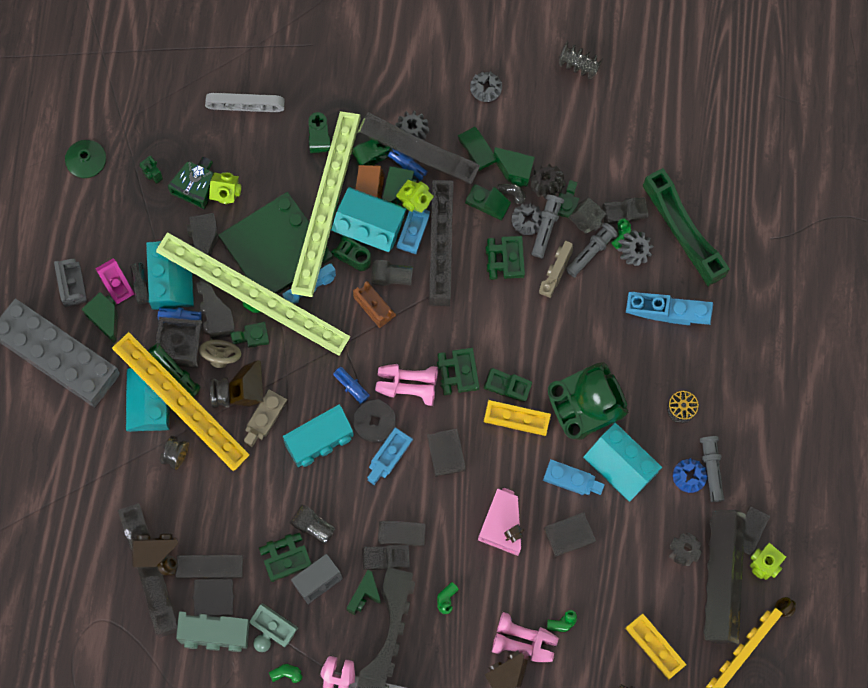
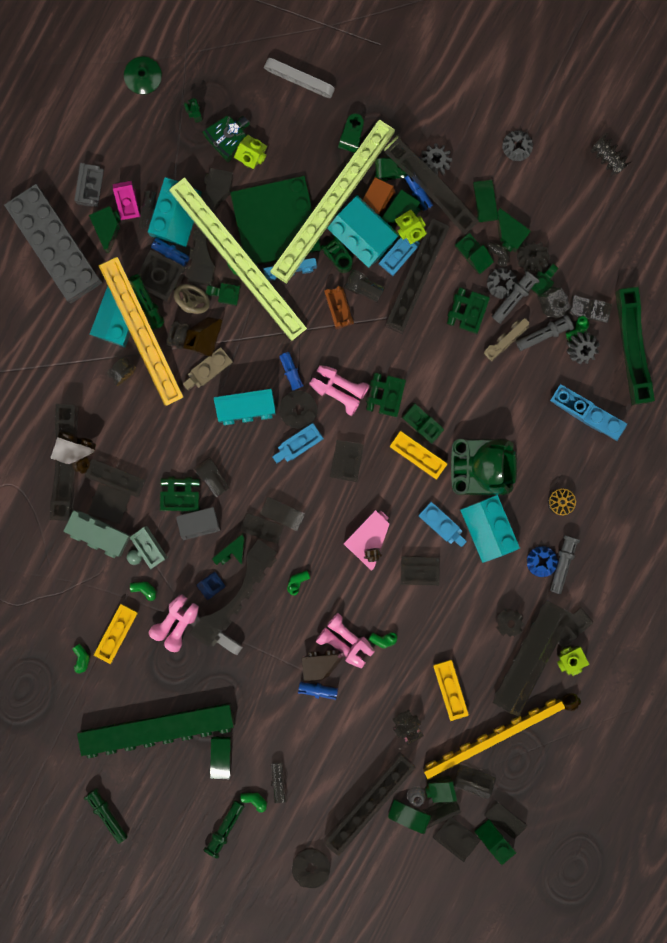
camera: 25 degrees right, 15 degrees up
(356, 640) = (211, 585): none -> dark blue slope

